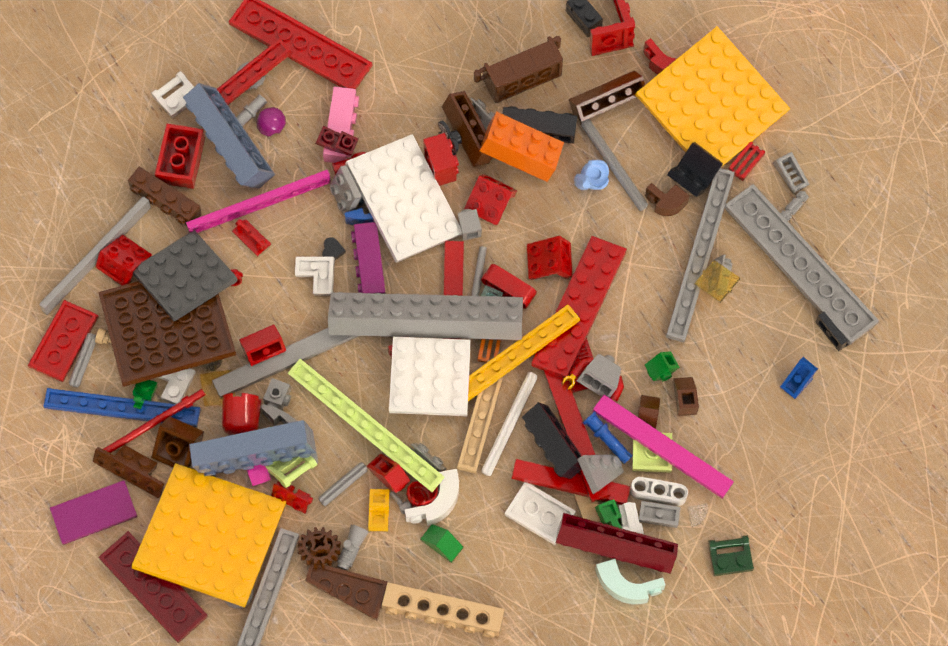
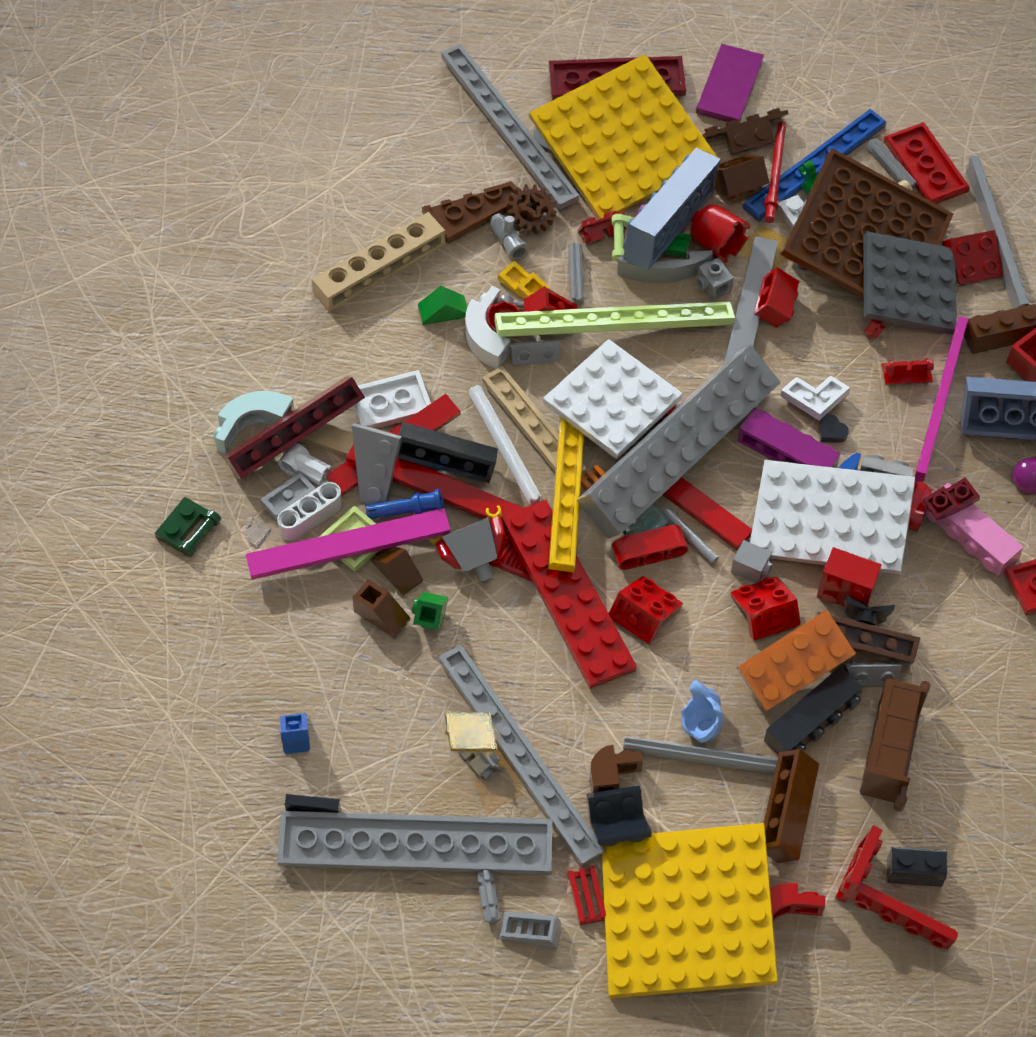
camera: 130 degrees right, 10 degrees down
(609, 513) = (329, 449): green plate -> none

